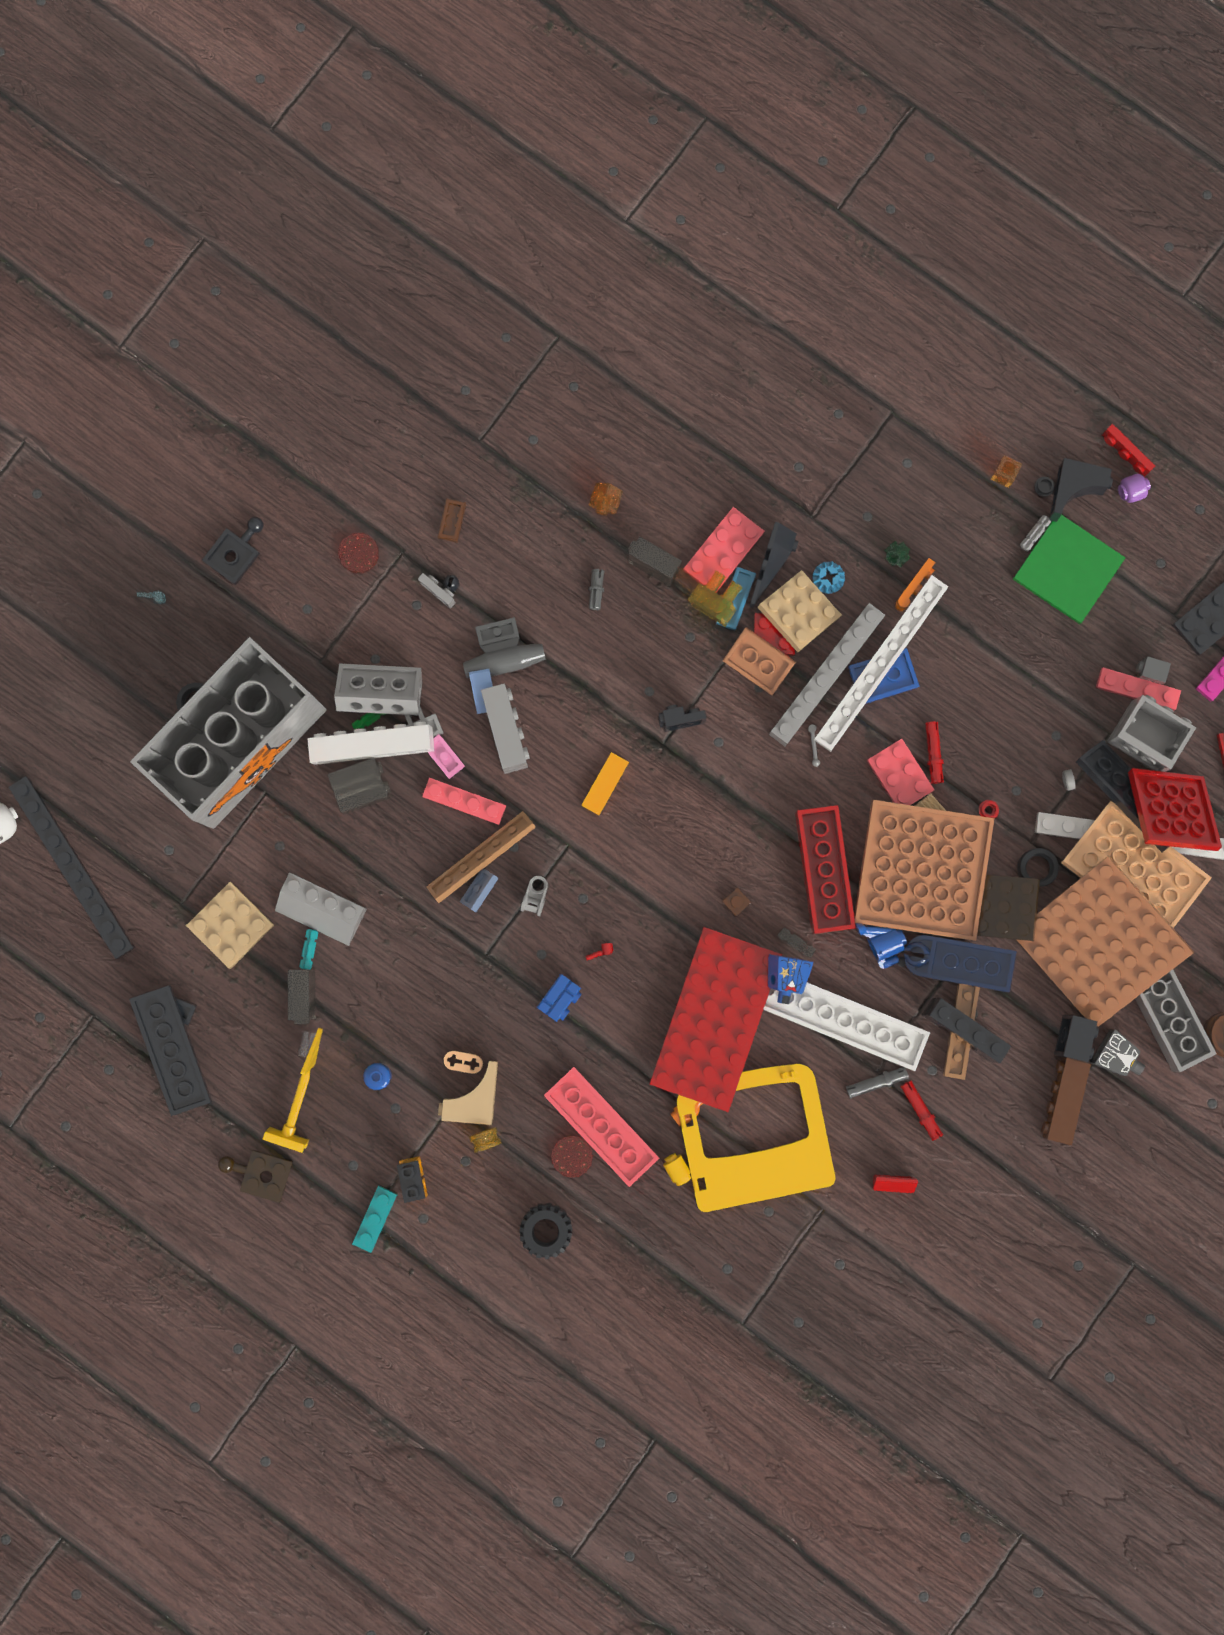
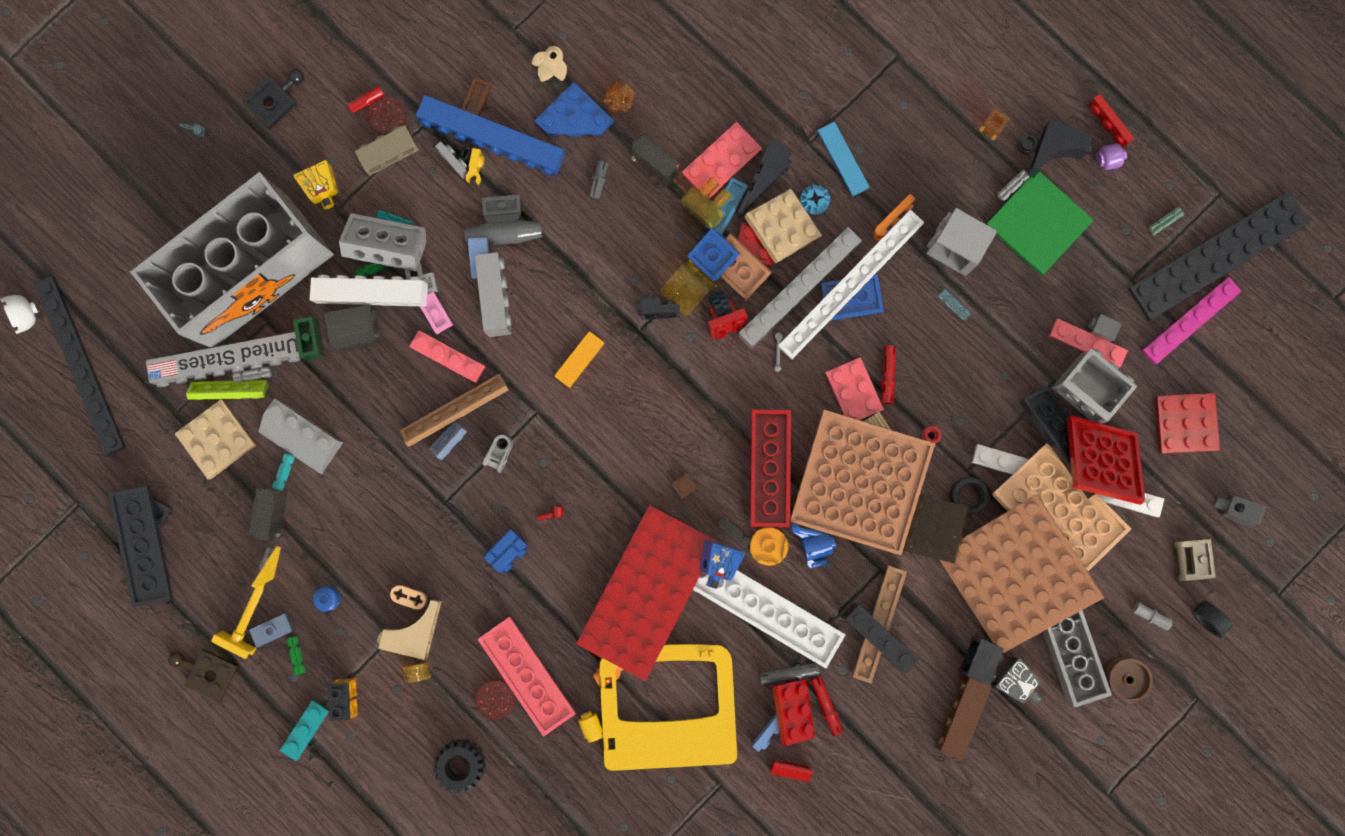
camera: 15 degrees right, 0 degrees up
(228, 837) = (223, 359): none -> light grey brick
(235, 870) = (227, 389): none -> lime plate
(258, 851) = (253, 374): none -> light grey axle
(298, 637) = (318, 183): none -> yellow torso
(314, 803) = (308, 338): none -> dark green brick
(322, 1118) = (271, 630): none -> sand blue plate
(333, 538) = (365, 99): none -> red axle
(352, 1141) = (295, 655): none -> green axle
(365, 589) = (386, 150): none -> dark tan brick
(372, 660) = (390, 217): none -> teal axle
(463, 589) = (476, 161): none -> yellow plate
(473, 558) = (490, 135): none -> blue brick
(525, 475) = (549, 66): none -> tan plate
(559, 524) = (574, 115): none -> blue plate
(709, 690) = (688, 287): none -> clear yellow bracket
(731, 652) = (713, 254): none -> blue plate
(752, 715) = (724, 316): none -> red plate
(835, 952) = (768, 546): none -> light orange tile
(852, 530) = (843, 159): none -> dark azure tile
(860, 1154) = (762, 739): none -> medium blue plate
(888, 1121) = (793, 712): none -> red plate
(897, 554) = (881, 186): clear green gear -> none
(961, 962) = (884, 573): dark blue plate -> none
(989, 602) = (960, 241): none -> light grey container
(992, 668) = (954, 304): none -> clear light blue axle
(1068, 780) = (1010, 418): light grey tile -> none
(1201, 548) = (1166, 221): none -> sand green axle

